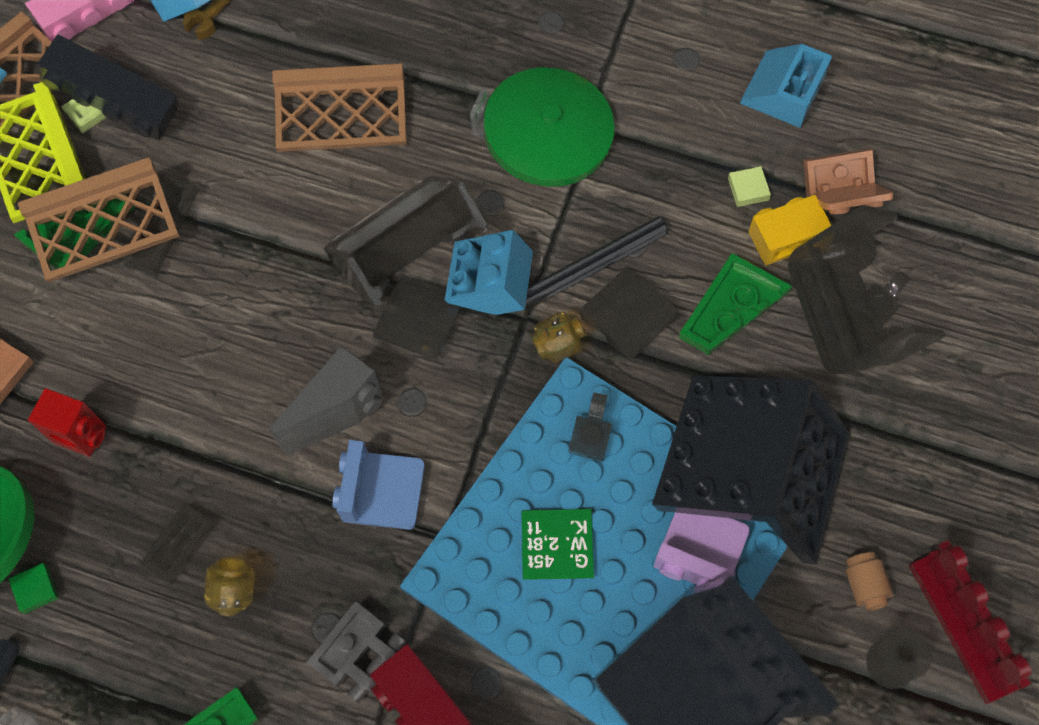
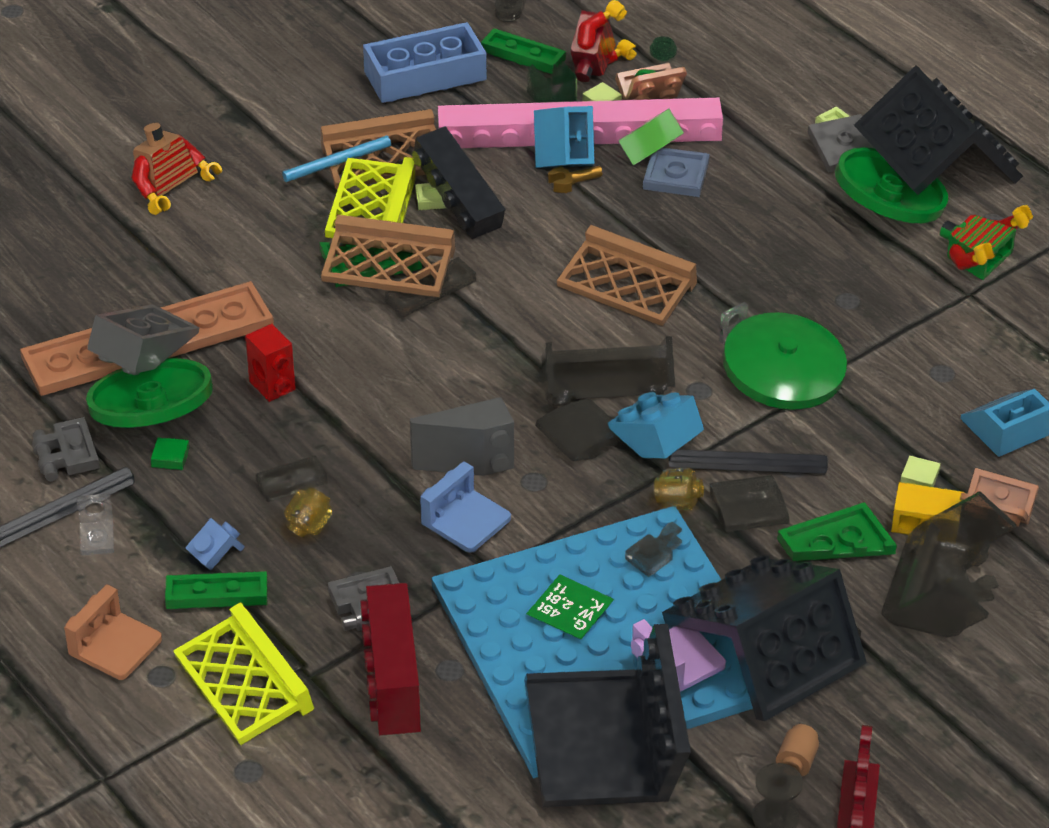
camera: 30 degrees right, 25 degrees down
(157, 679) = (213, 543): none -> medium blue bracket

